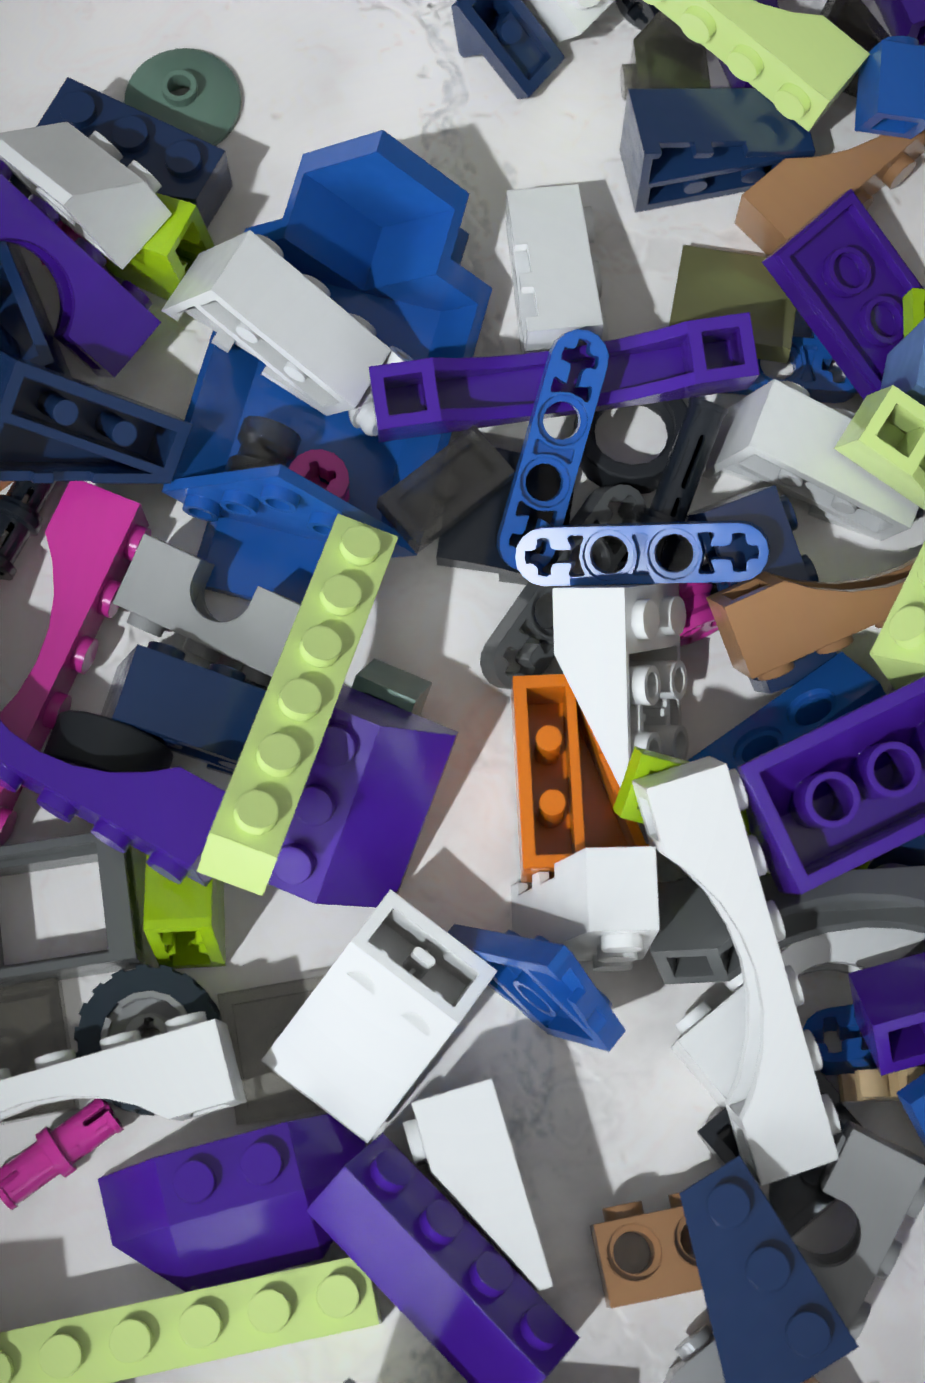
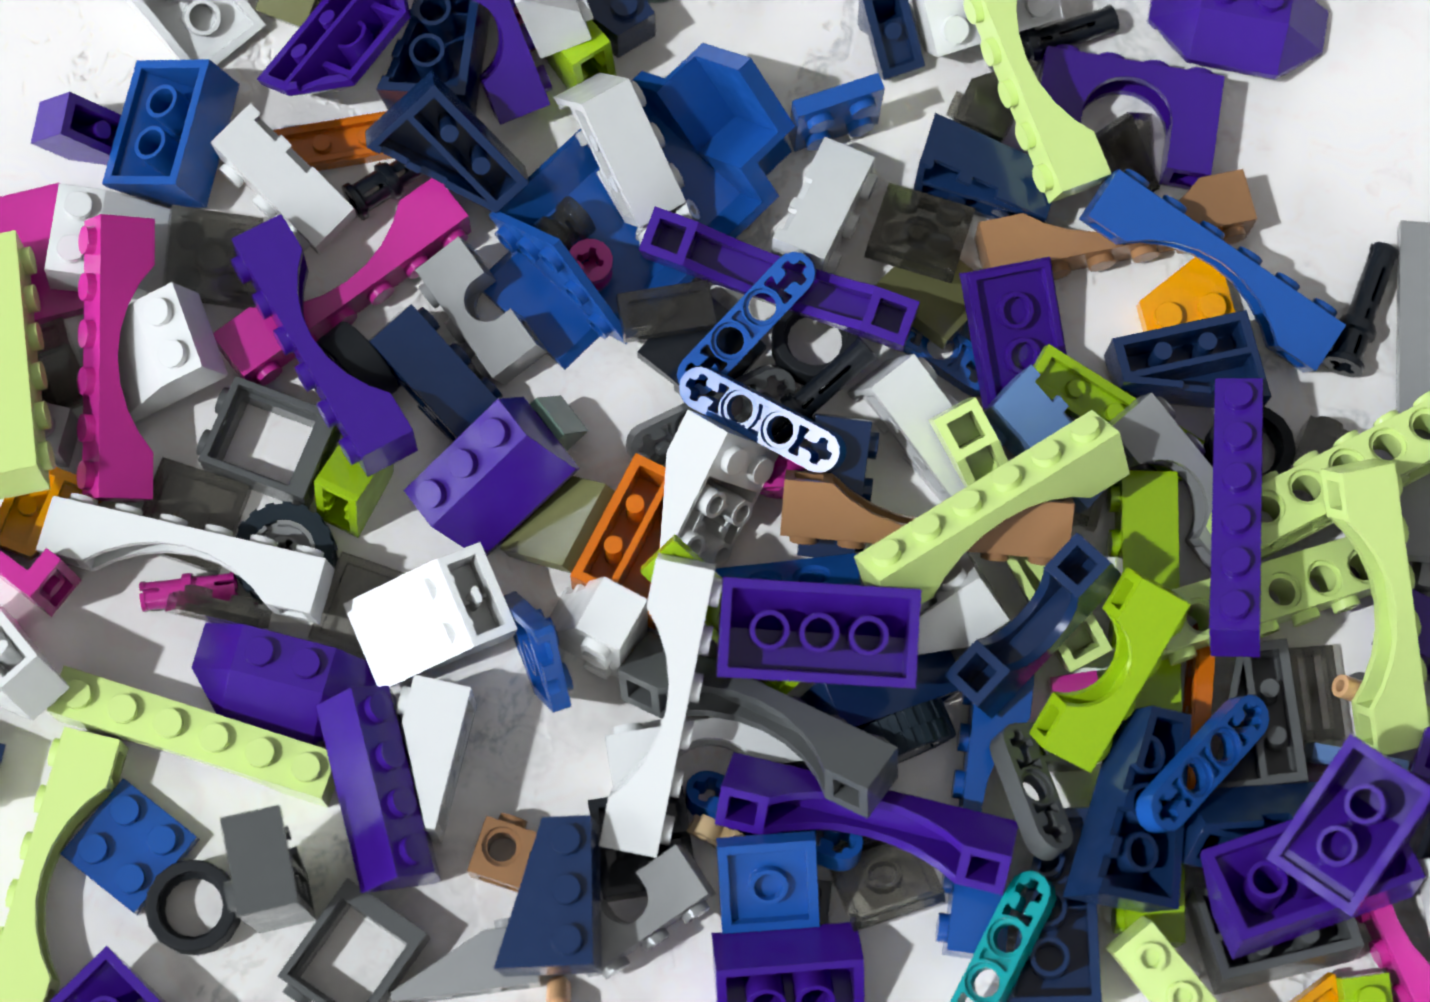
camera: 25 degrees right, 0 degrees up
(81, 1162) = (198, 604): none -> clear smoke plate
(297, 707) = (478, 396): yellowish green arch -> none
(472, 816) = (561, 525): none -> olive tile
(505, 154) = (836, 112): none -> blue plate
(678, 245) = (919, 233): none -> clear smoke plate

